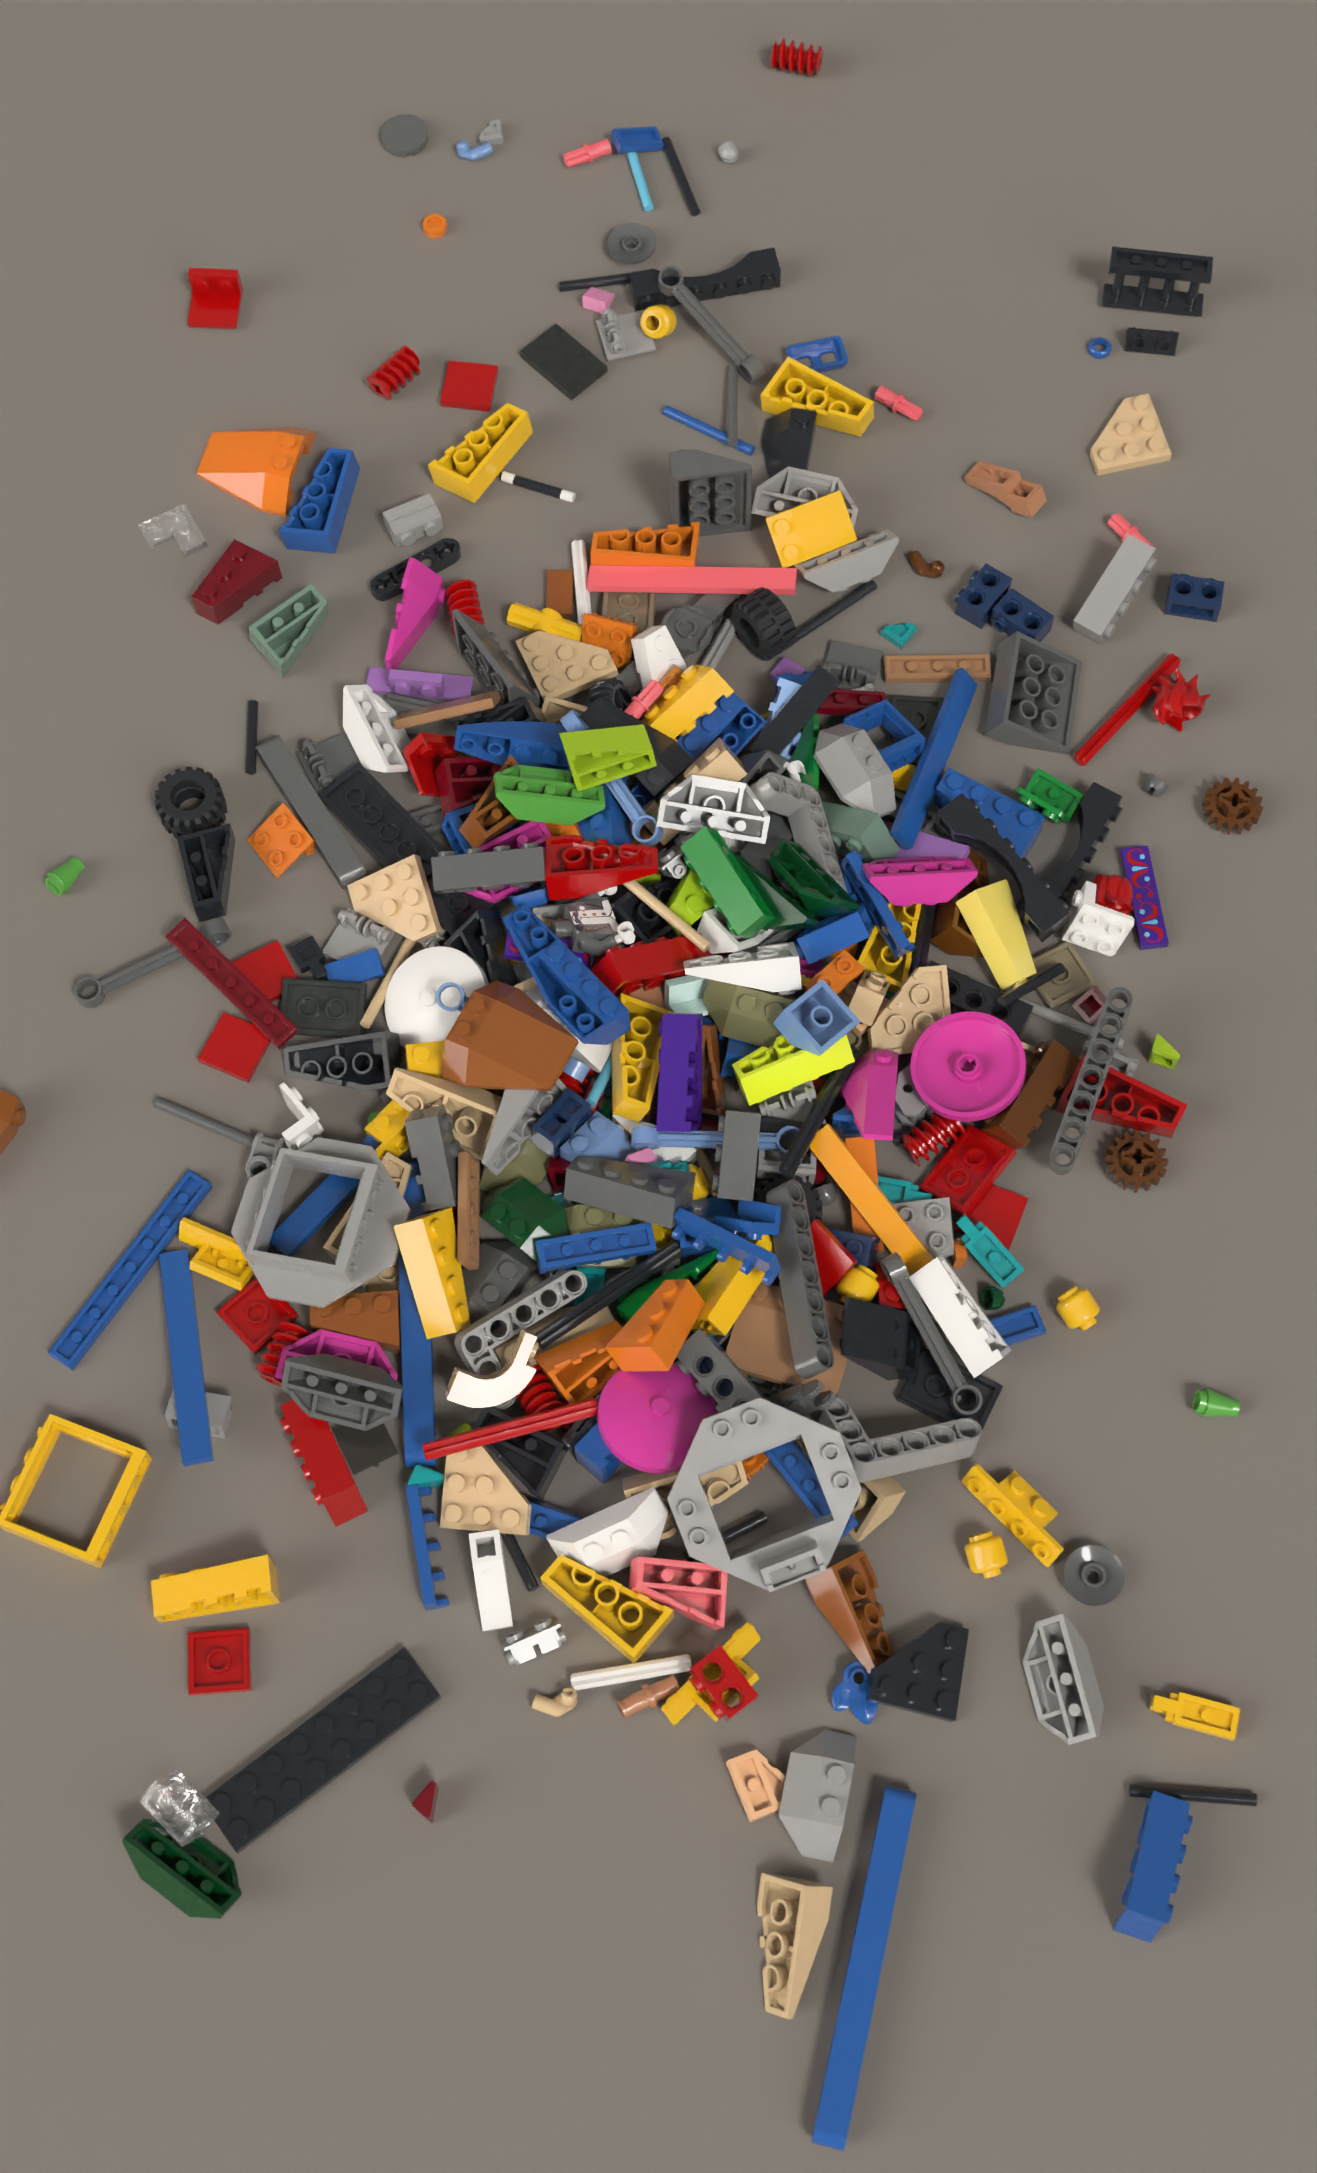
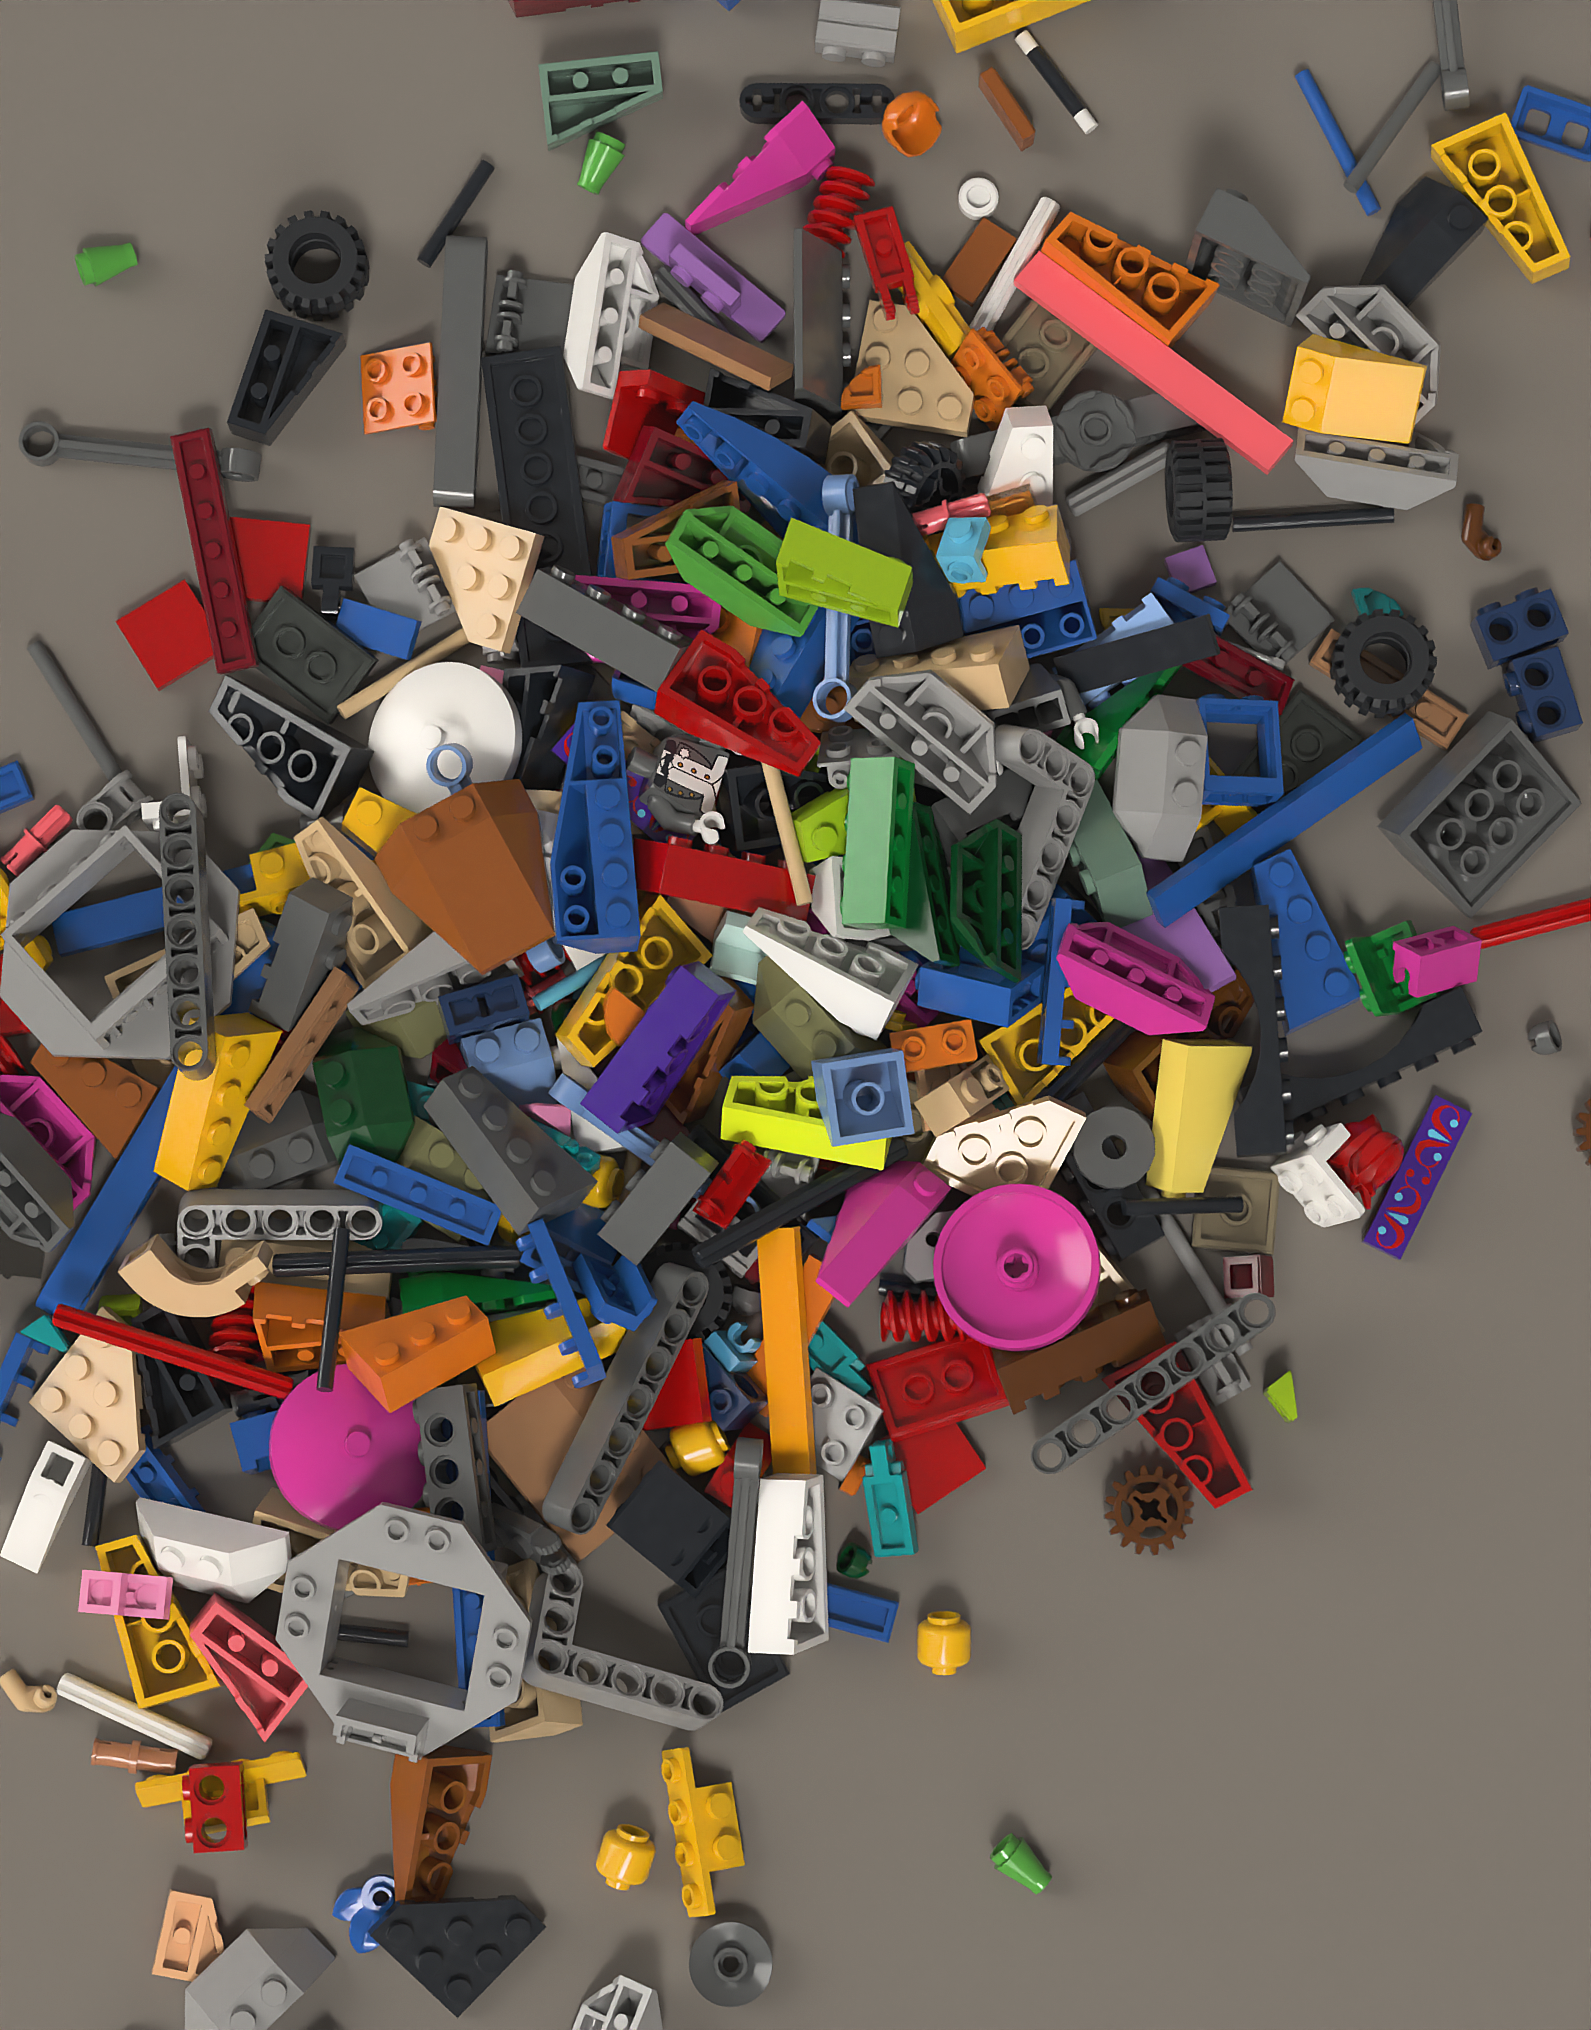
camera: 30 degrees right, 15 degrees up
(229, 1205) = (36, 840): none -> coral axle
(315, 662) = (600, 161): none -> bright green cone
(367, 1187) = (196, 953): none -> dark grey beam
(473, 546) = (911, 123): none -> orange hair
(511, 612) = (886, 258): none -> red hinge
(521, 511) = (1007, 108): none -> dark orange tile
(537, 564) = (978, 198): none -> white tile
(543, 1634) = (30, 1599): hinge -> none
(546, 681) = (864, 390): none -> orange tile
(579, 1592) = (125, 1594): none -> bright pink slope
(592, 1339) = (333, 1310): none -> black bar
(645, 1069) = (620, 1015): none -> orange tile
(663, 710) = (963, 548): none -> medium azure bracket
(775, 1122) = (732, 1185): none -> red hinge
(837, 1221) = (730, 1349): none -> dark azure tile
(932, 632) = (1401, 635): none -> black tyre
(975, 962) = (1138, 1147): none -> dark grey tile
(1072, 774) = (1437, 960): none -> dark pink hinge

